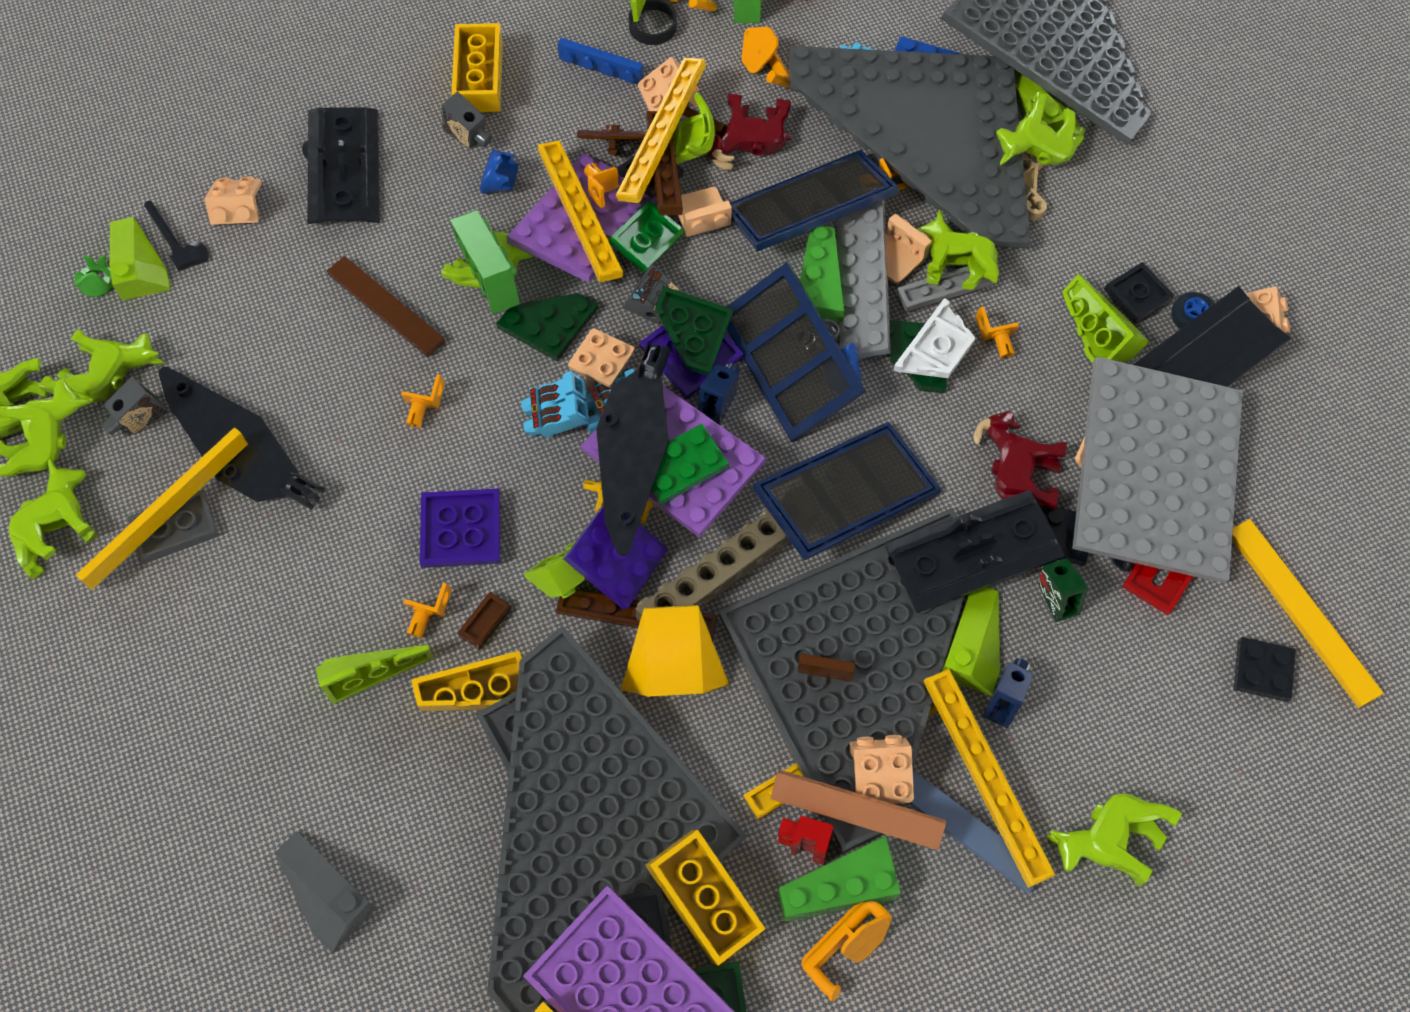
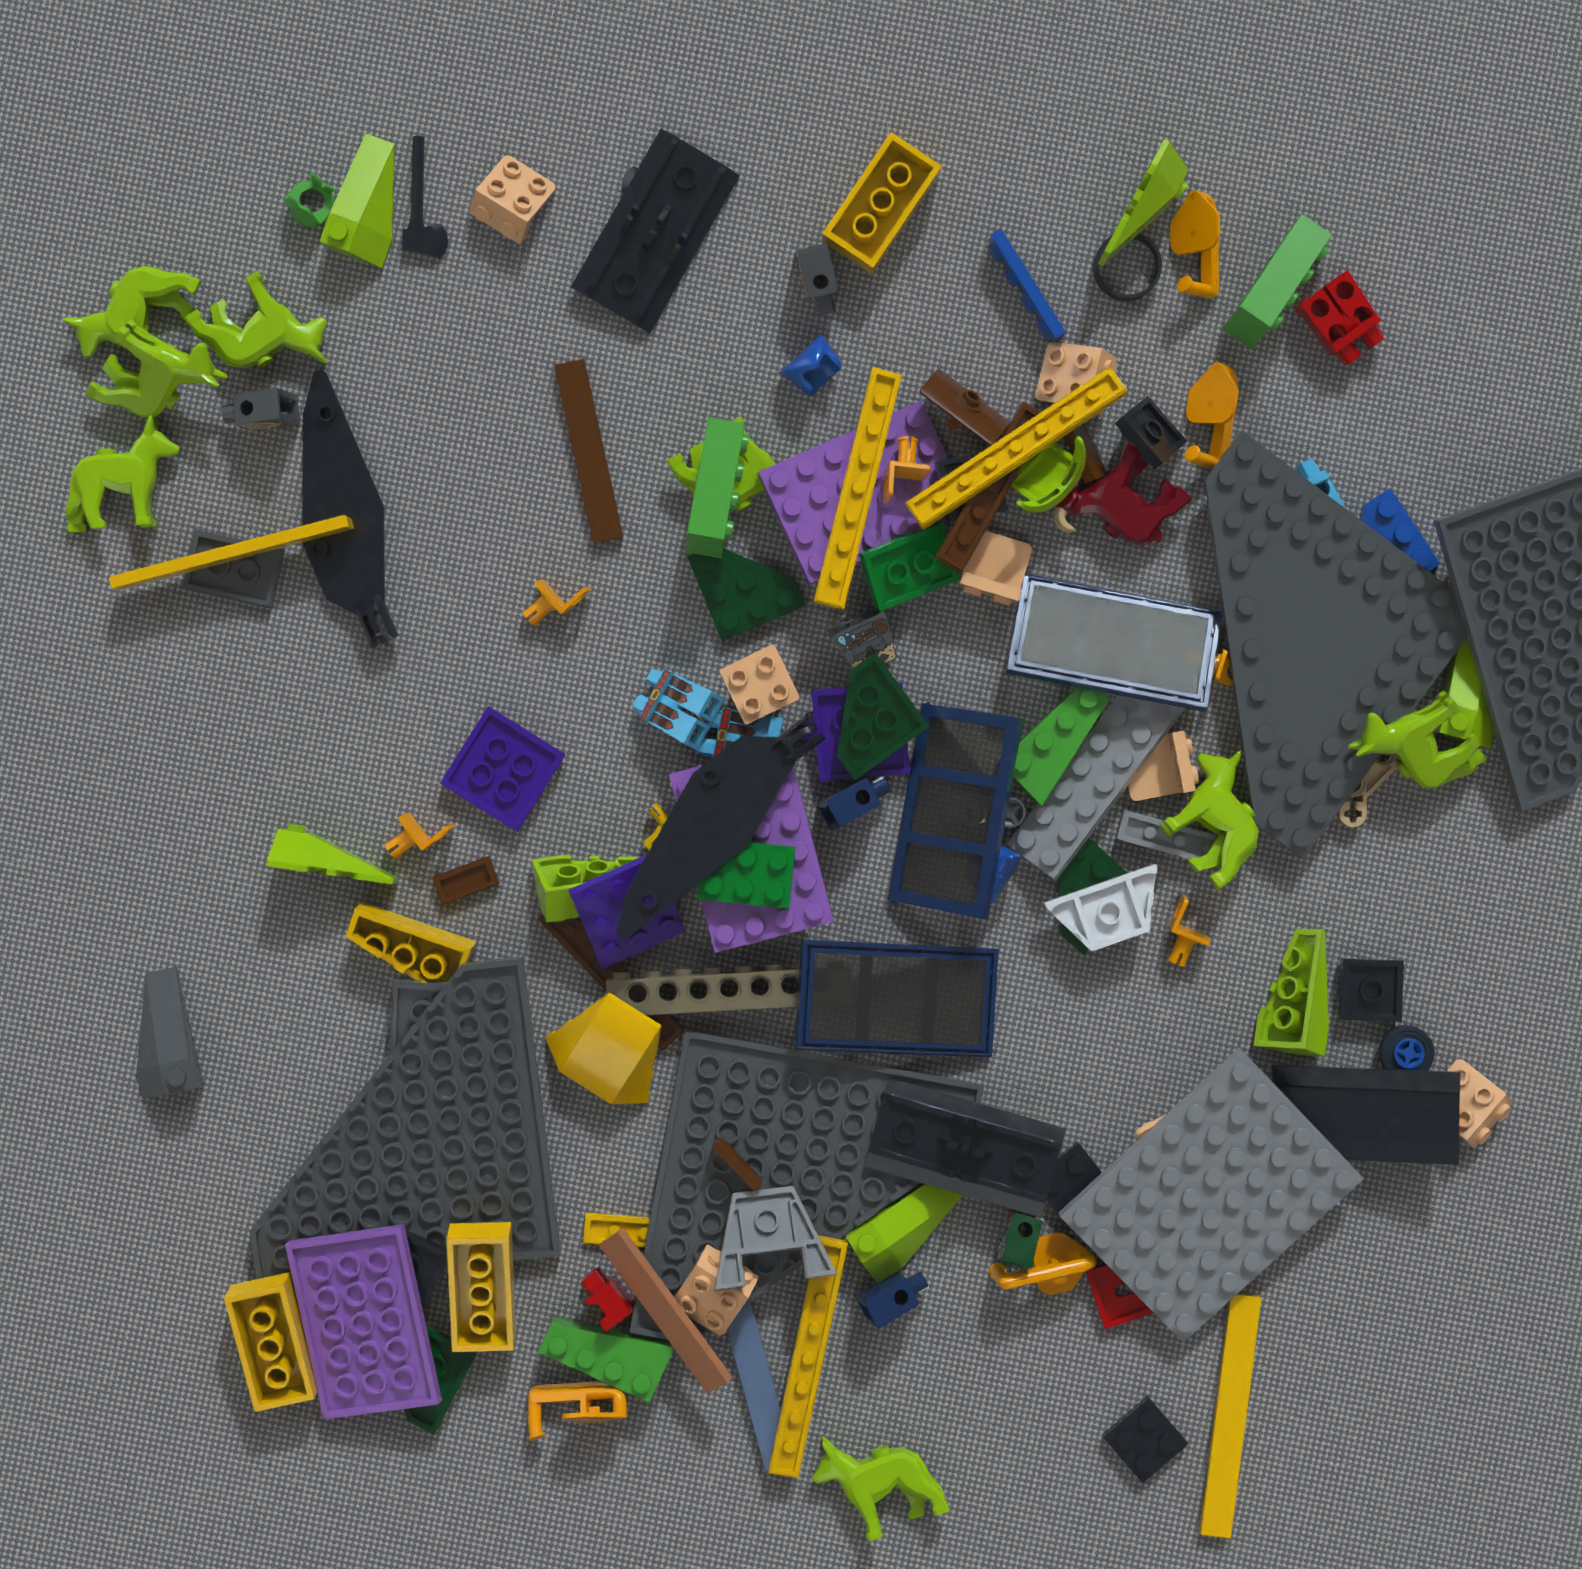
camera: 30 degrees right, 25 degrees up
(745, 87) = (1150, 432): none -> black plate
(884, 689) = (766, 1224): none -> light grey wing
(1019, 458) = (1086, 1084): dark red animal -> none
(1103, 597) = (1055, 1269): none -> light orange piece

